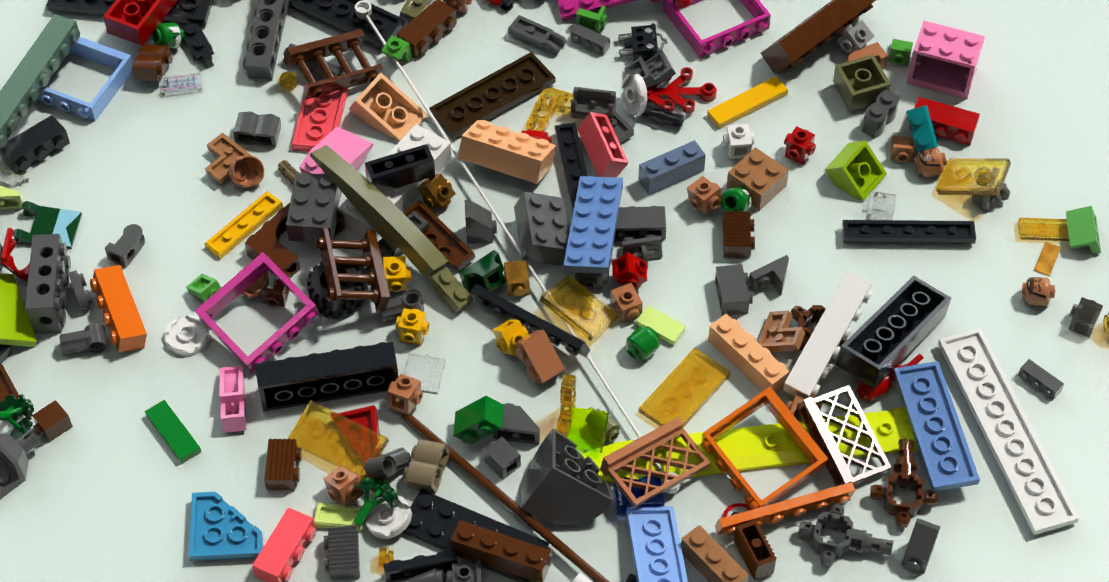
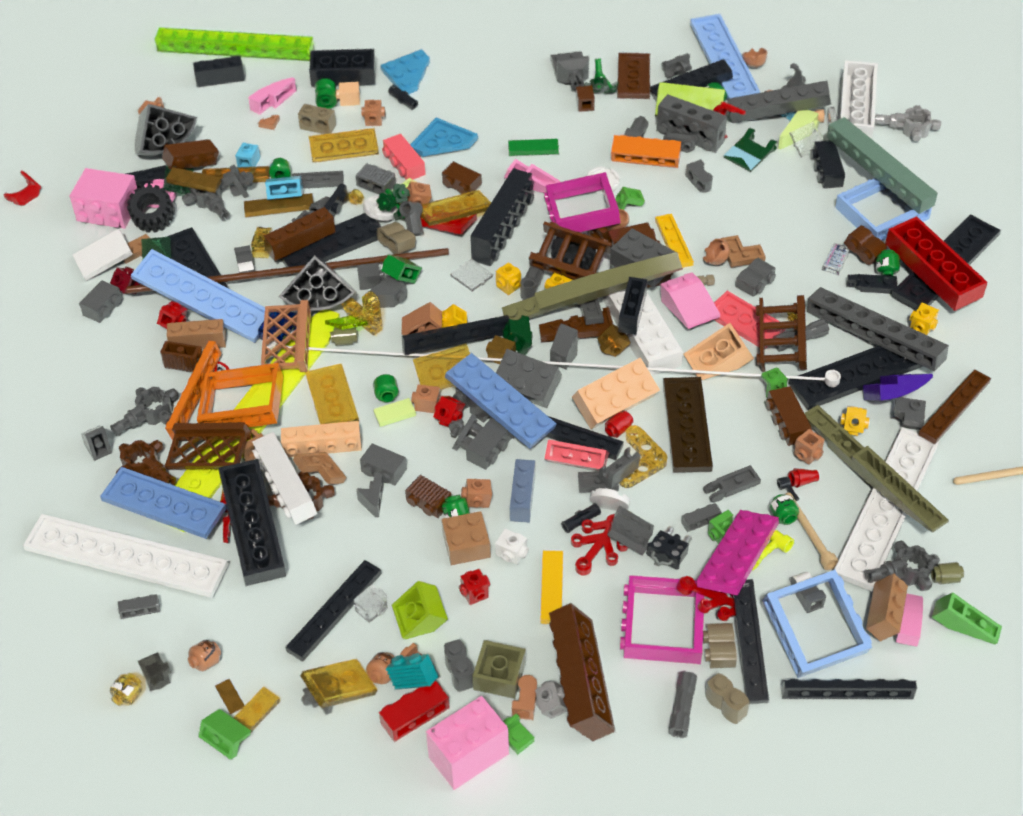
camera: 125 degrees right, 5 degrees down
(404, 394) = (457, 249): nougat brick -> none

